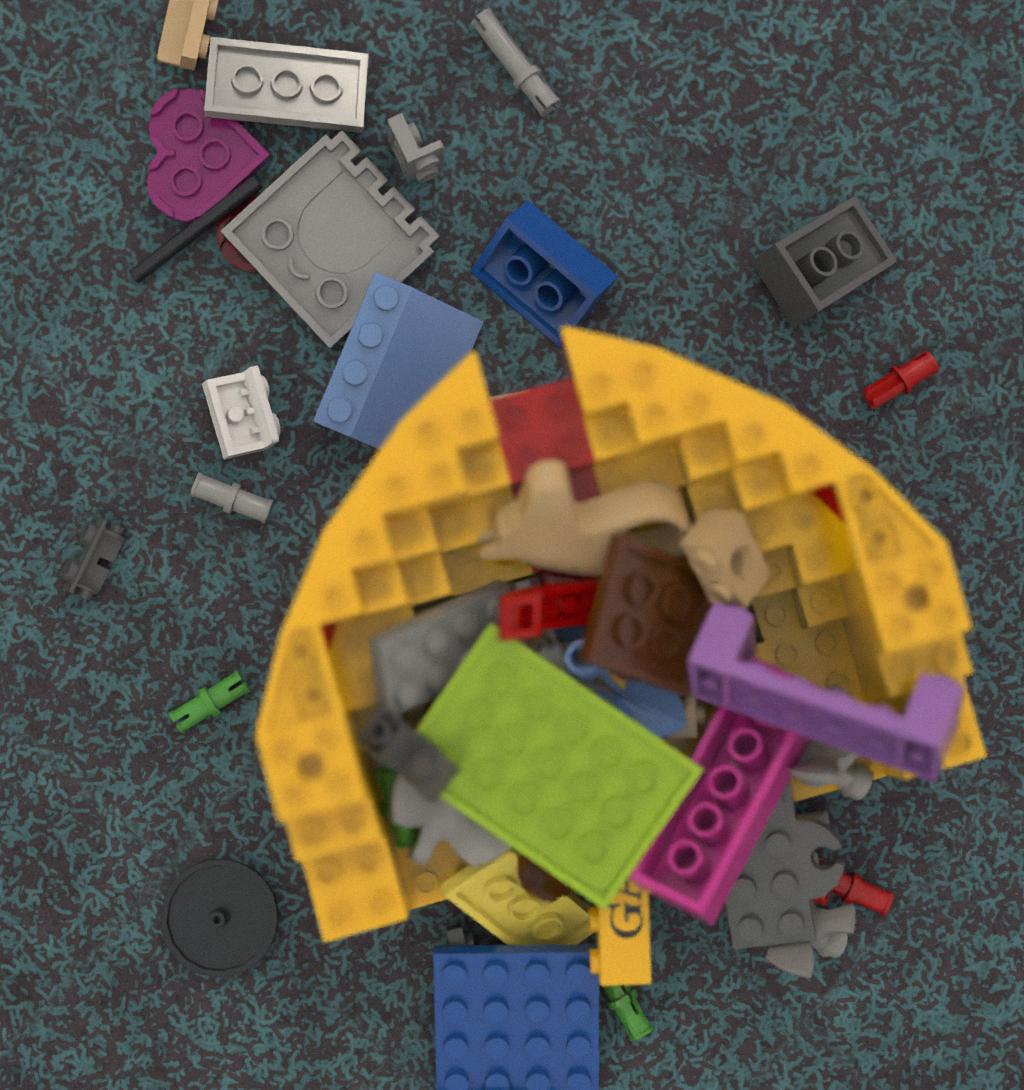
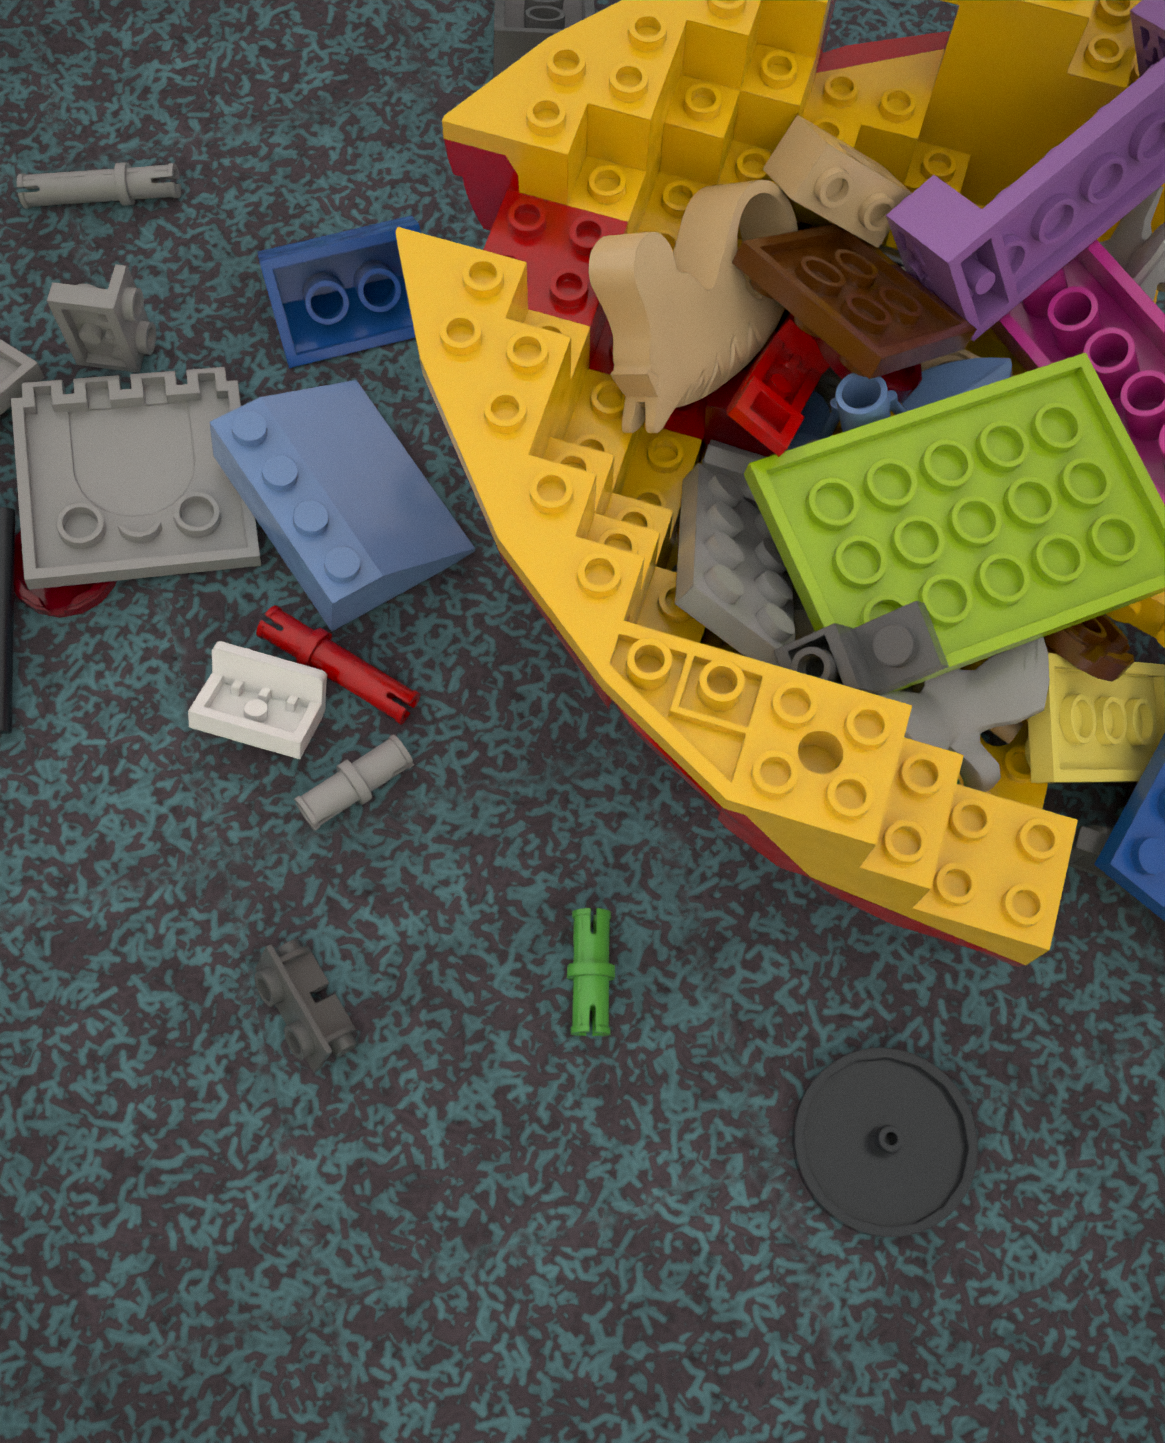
camera: 60 degrees left, 15 degrees down
(295, 438) = (341, 666): none -> red pin

